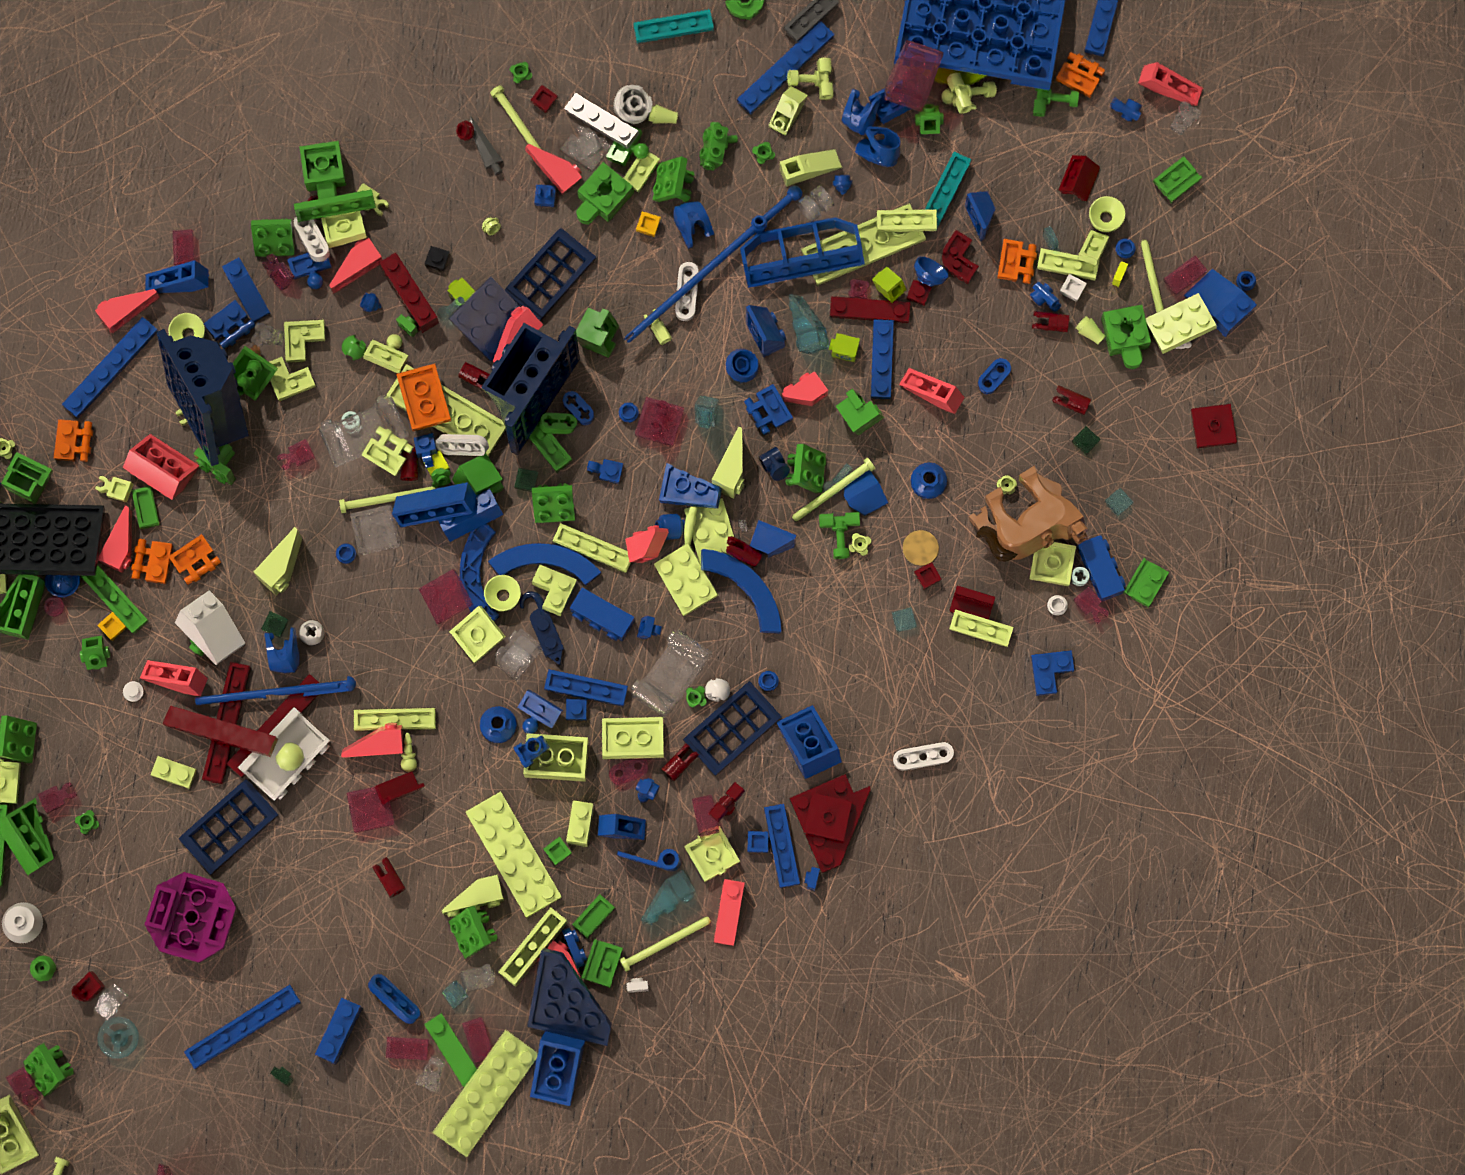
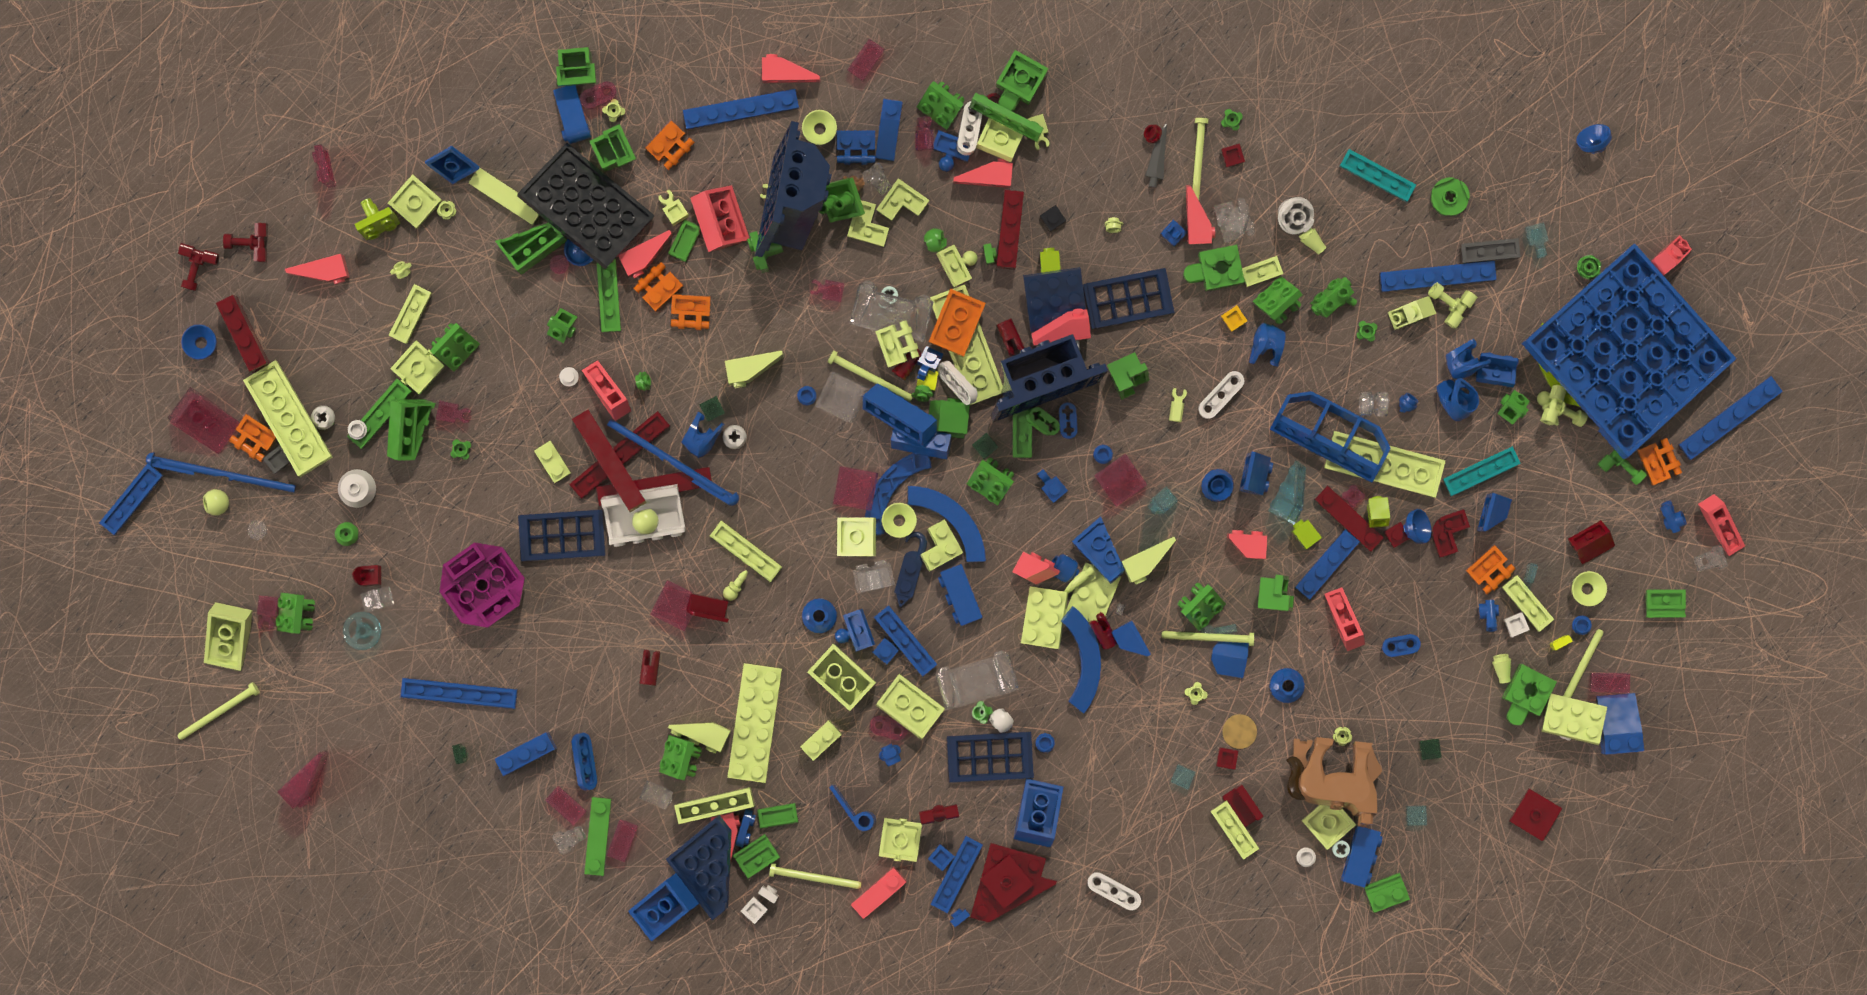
camera: 40 degrees right, 10 degrees up
(112, 626) = (590, 314): yellow plate -> none
(179, 278) = (844, 80): blue slope -> none
(210, 627) = (661, 375): white slope -> none
(370, 302) = (975, 213): blue plate -> none
(382, 741) = (720, 561): coral slope -> none
(445, 312) = (1025, 267): clear light blue bar -> none
(454, 994) = (631, 793): clear light blue tile -> none
(485, 1093) = (597, 884): yellowish green plate -> none
(527, 752) = (822, 660): blue plate -> none
(557, 851) = (788, 746): bright green plate -> none
(592, 547) = (994, 536): yellowish green tile -> none
(601, 121) = (1262, 208): plate -> none
(620, 154) = (1266, 242): bright green plate -> none
(621, 827) = (849, 766): blue slope -> none
(635, 1010) = (754, 910): none -> white plate
(648, 628) = (986, 631): blue tile -> none
(673, 891) = (848, 844): clear light blue slope -> none
(676, 765) = (924, 753): dark red hinge -> none
(705, 823) = (920, 802): clear pink tile -> none
(758, 225) = (1363, 382): blue bar -> none
(773, 406) = (1215, 537): blue plate -> none
(774, 464) = (1181, 581): dark blue piece -> none
(808, 166) = (1392, 370): yellowish green slope -> none
(839, 525) = (1192, 666): bright green bar -> none
(906, 220) = (1431, 473): yellowish green plate -> none
(913, 75) = (1526, 367): clear pink slope -> none
(1045, 668) = (1259, 896): blue plate -> none
(1056, 322) = (1481, 640): dark red hinge -> none
(1076, 402) = (1444, 710): dark red hinge -> none
(1090, 602) = (1331, 874): clear pink plate -> none
(1093, 247) = (1557, 606): yellowish green plate -> none
(1246, 275) = (1658, 725): blue plate -> none

